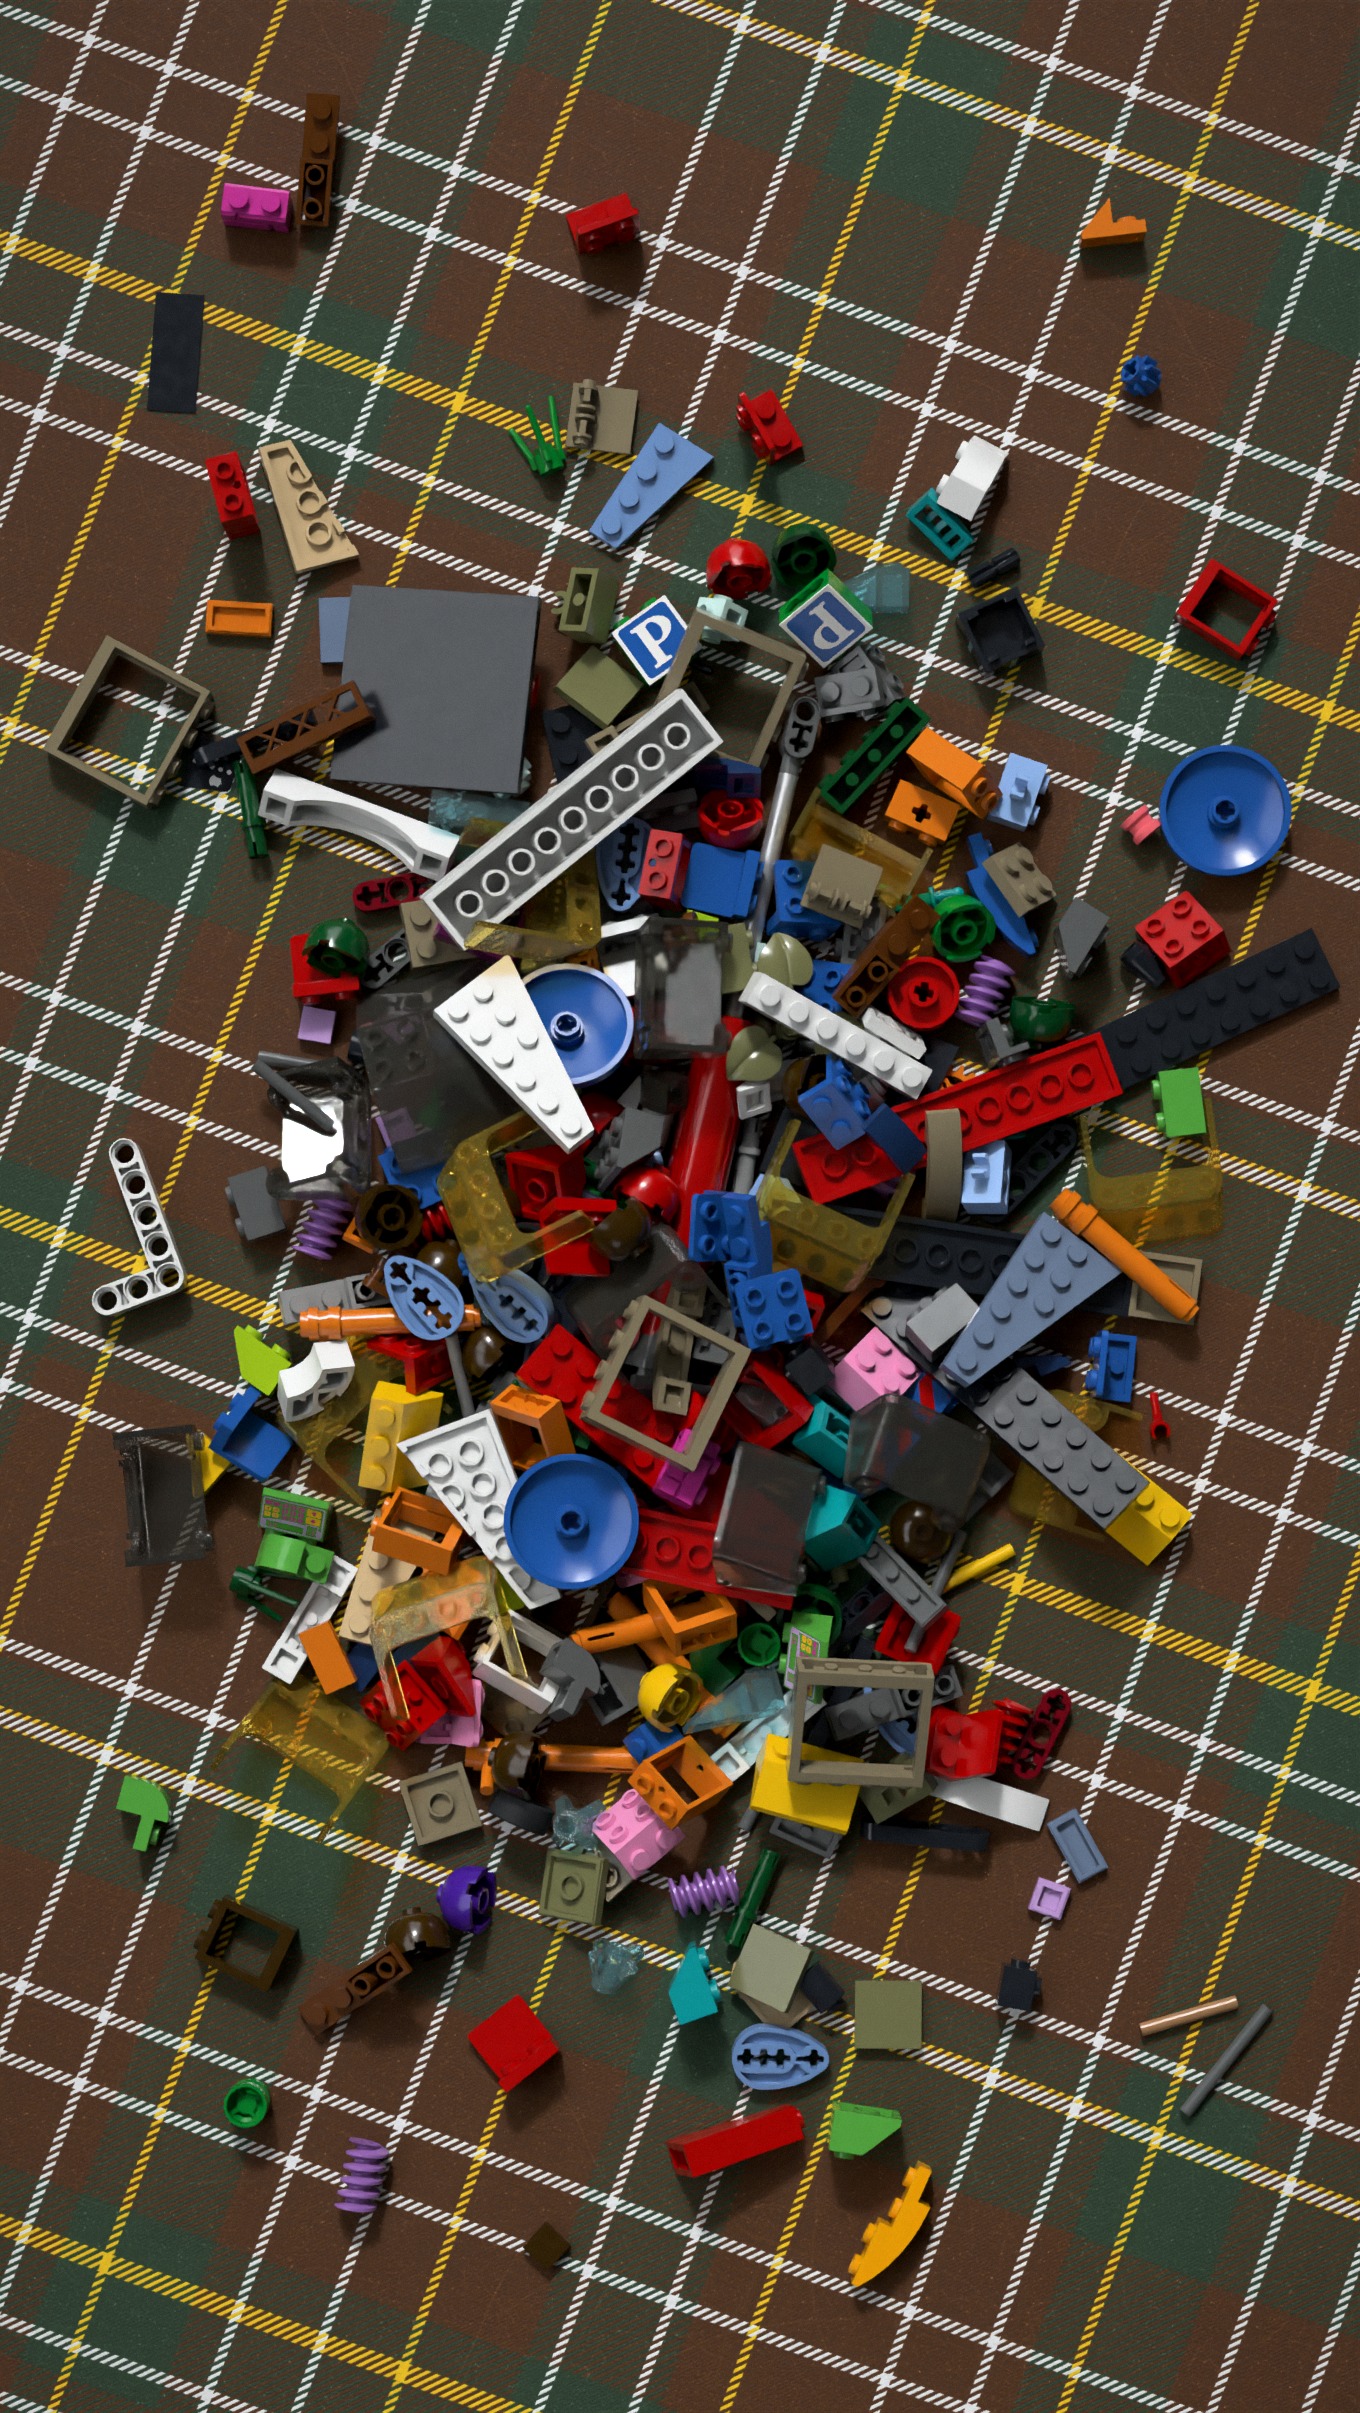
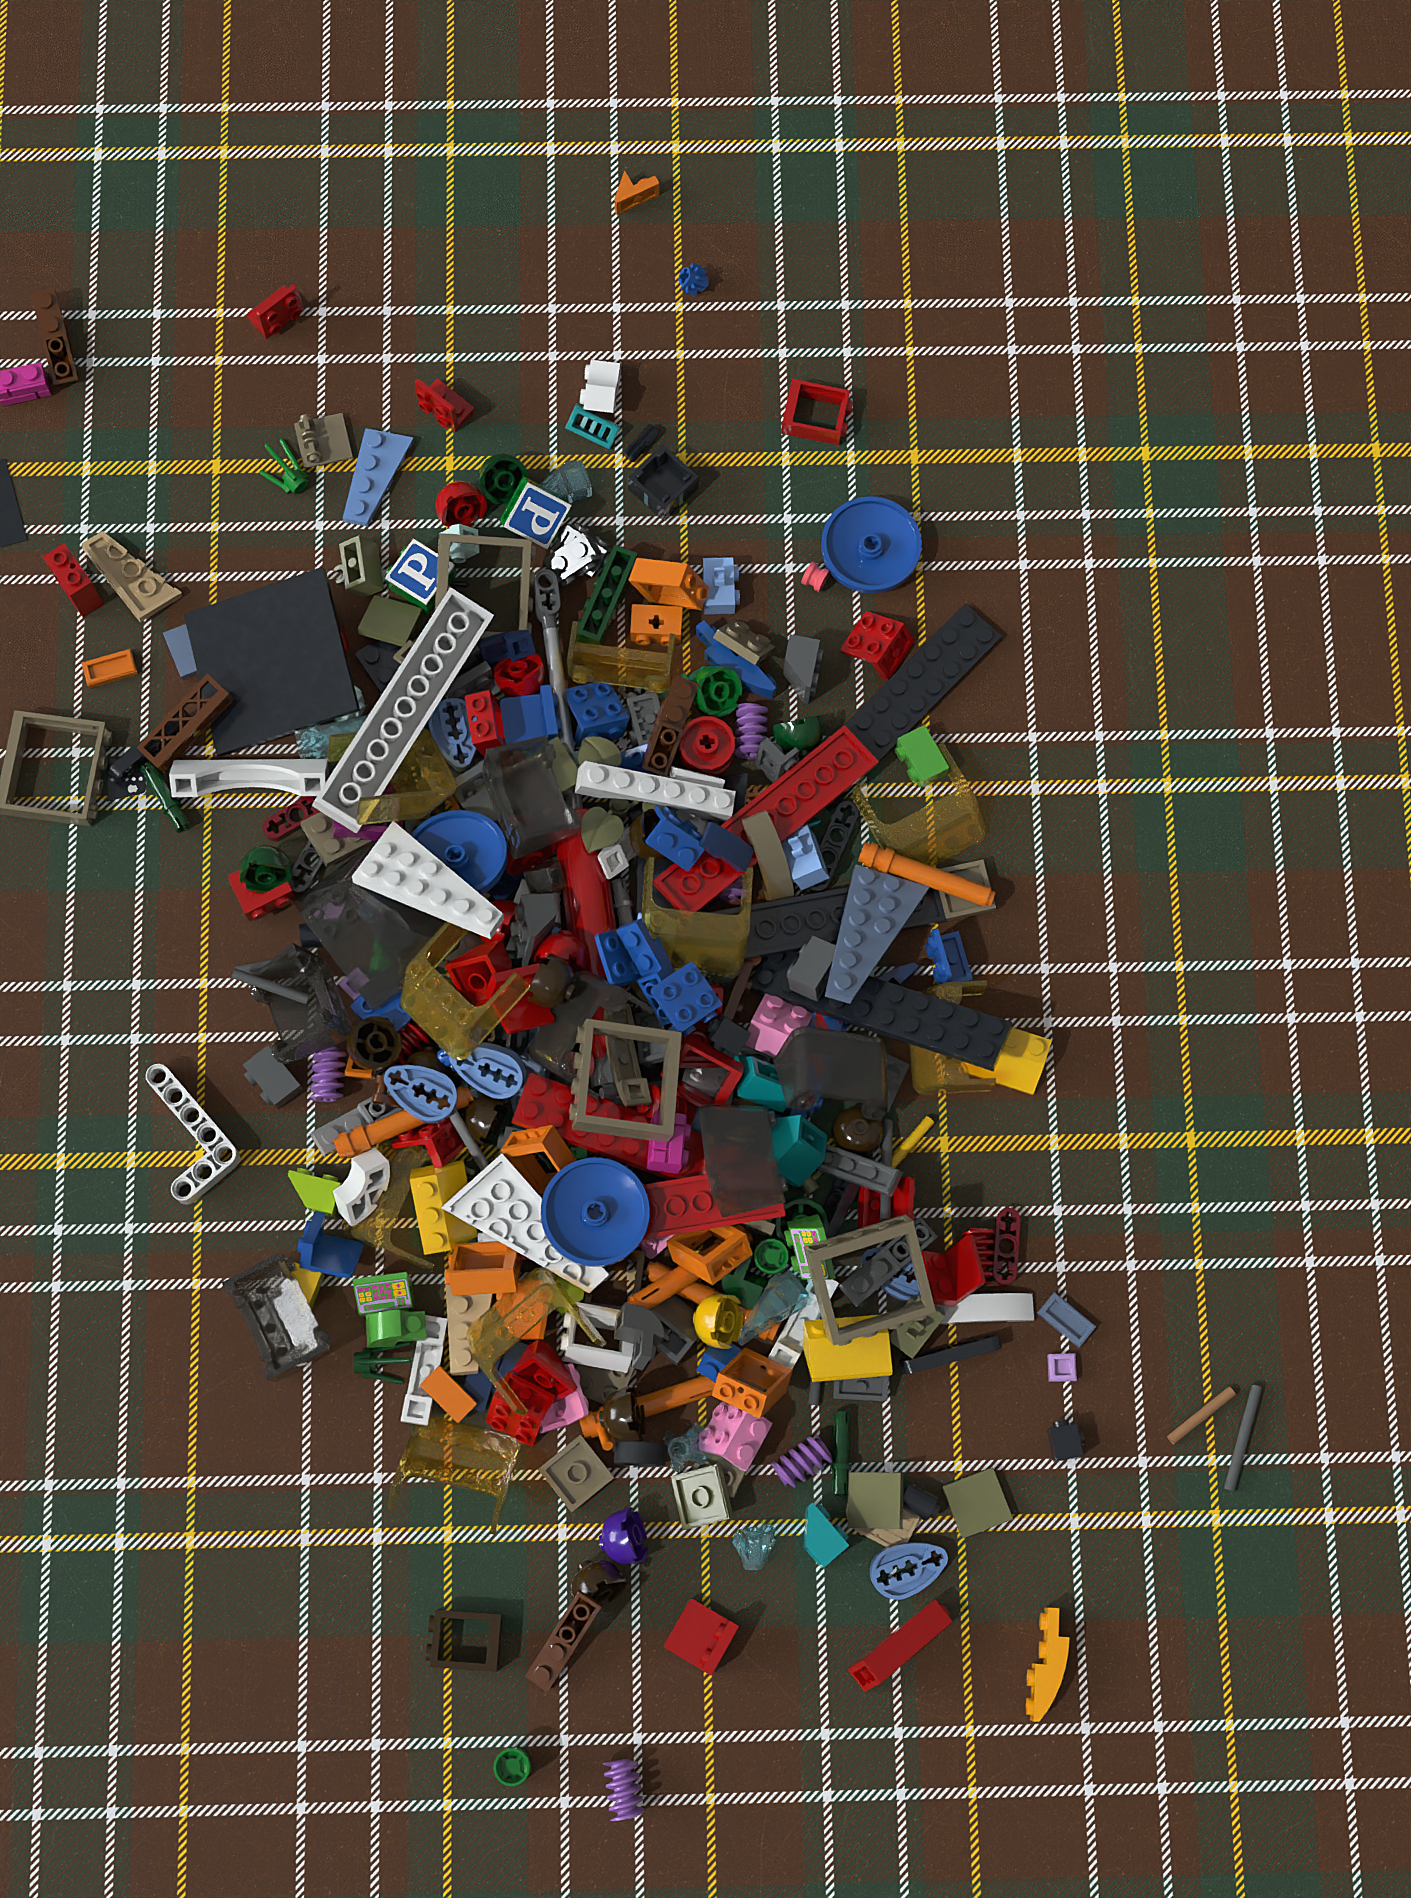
camera: 25 degrees left, 10 degrees down
(151, 1802) = (350, 1559): bright green brick -> none
(317, 1025) = (270, 933): lavender tile -> none
(546, 2245) = (787, 1788): dark brown tile -> none
(819, 1728) = (844, 1270): black beam -> none
(841, 886) = (618, 689): dark tan hinge -> none
(859, 2128) = (990, 1597): bright green slope -> none
(1143, 964) = (856, 671): black cone -> none
(1157, 1416) = (996, 984): red hand -> none

